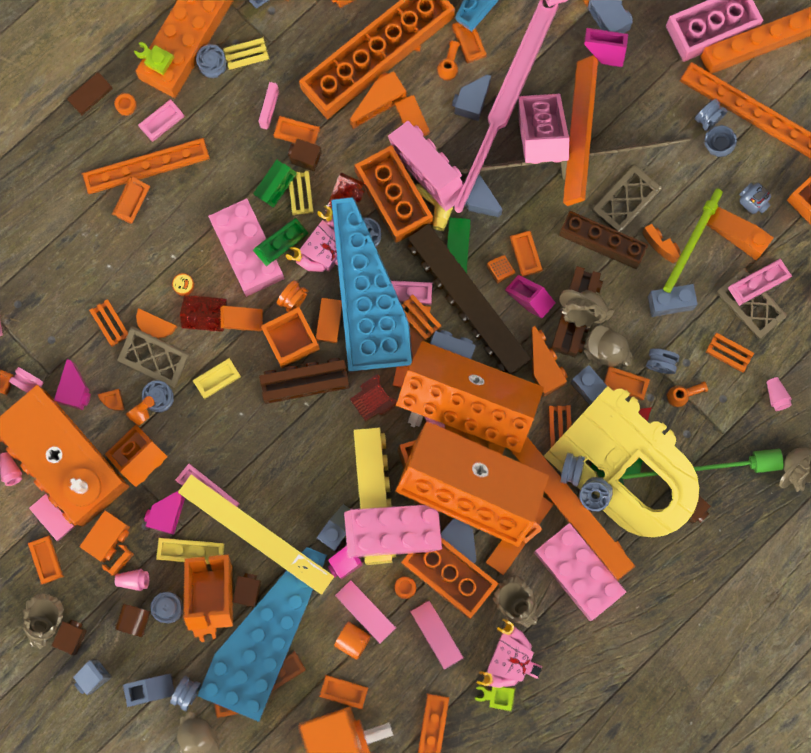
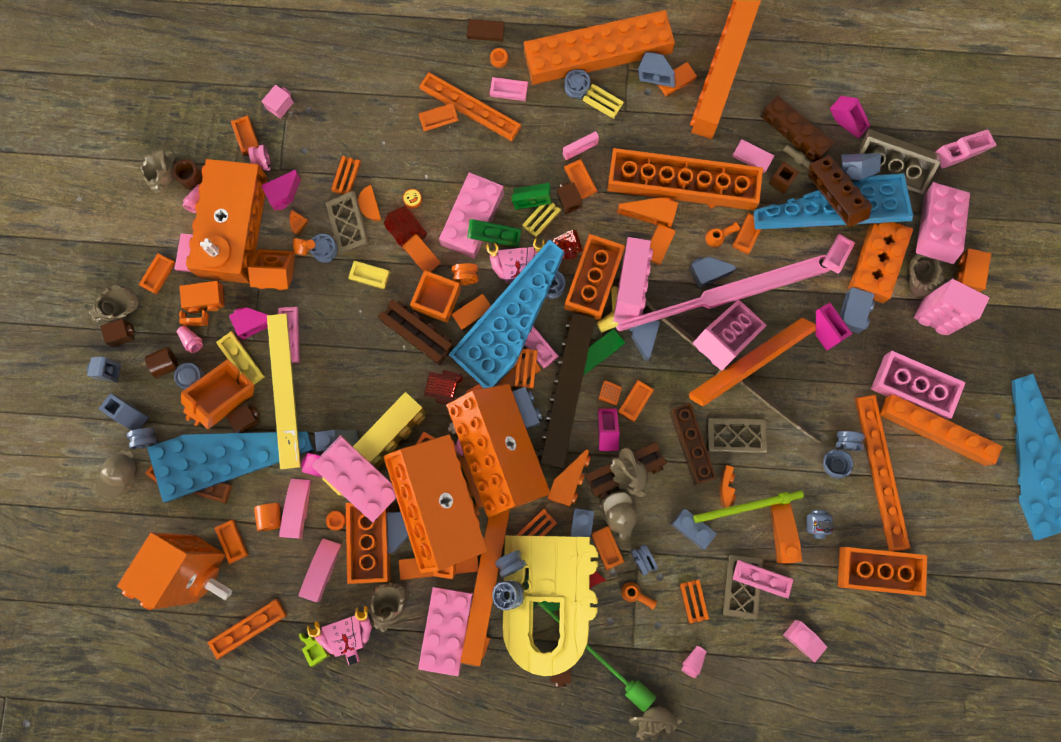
camera: 50 degrees right, 0 degrees up
(156, 58) = (542, 46): lime plate -> none

